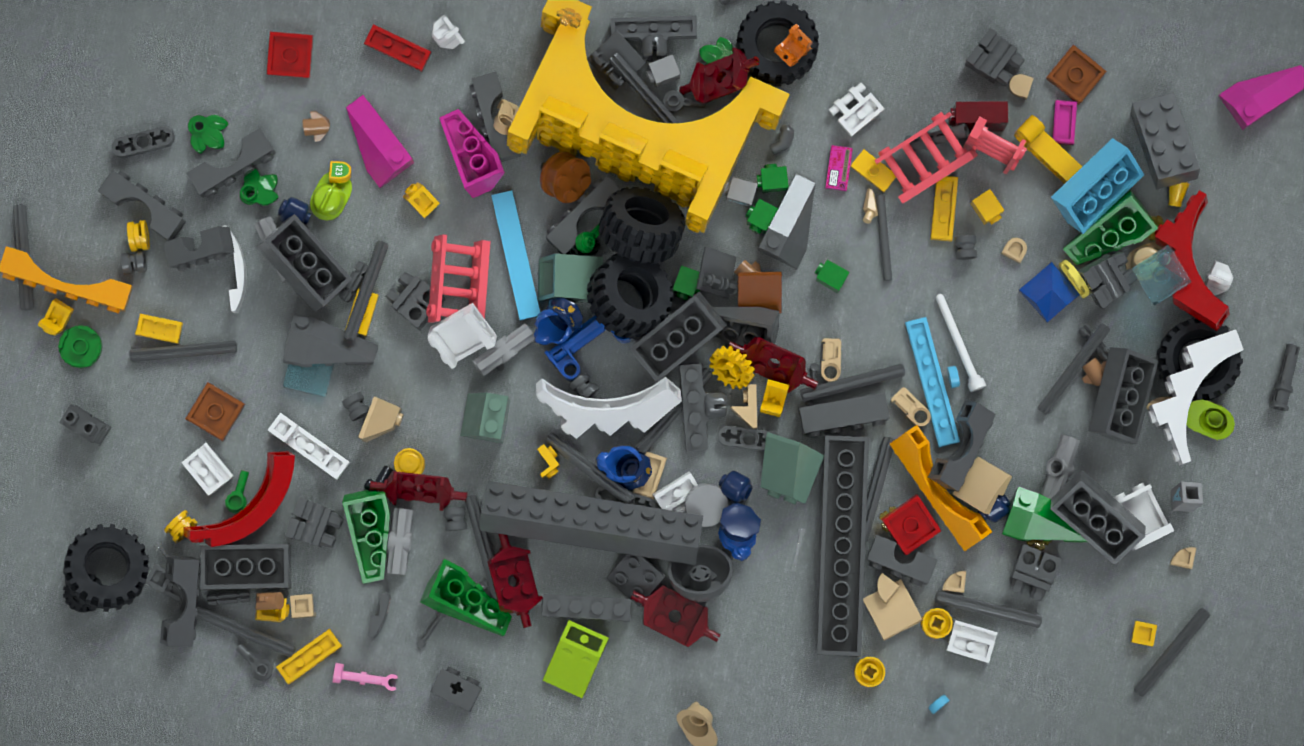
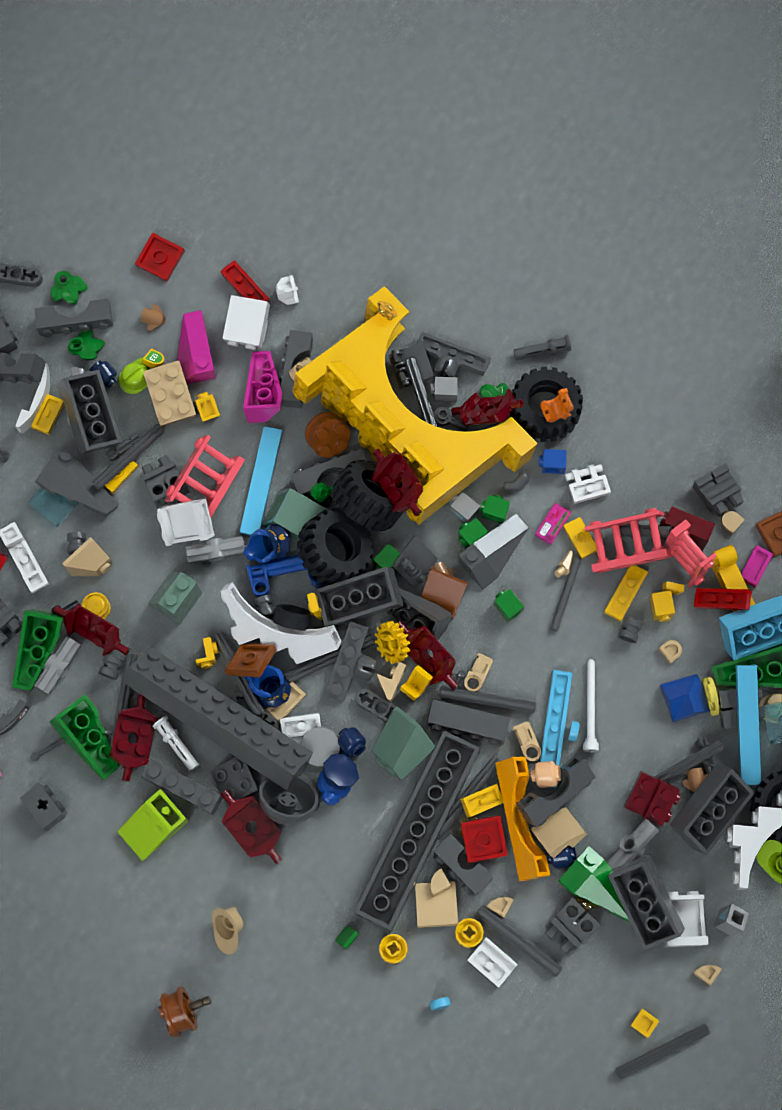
camera: 25 degrees right, 10 degrees down
(256, 281) = (48, 414): none -> yellow plate
(377, 204) = (169, 393): none -> tan brick
(421, 91) = (246, 322): none -> white brick
(549, 561) = (170, 736): none -> white pin
(597, 450) = (250, 660): none -> dark orange tile
(617, 386) = (292, 617): none -> black tyre
(635, 365) = (313, 605): none -> yellow plate
(654, 197) = (389, 473): none -> dark red plate
(810, 101) = (553, 461): none -> blue brick
(818, 681) = (346, 937): none -> green slope
(892, 487) = (482, 800): none -> yellow plate
(945, 433) = (546, 774): none -> light nougat head
(990, 184) = (675, 588): none -> yellow tile
(1046, 175) = (722, 599): none -> red plate
(1060, 410) = (652, 798): none -> dark red plate
(1124, 294) = (748, 724): none -> medium azure tile

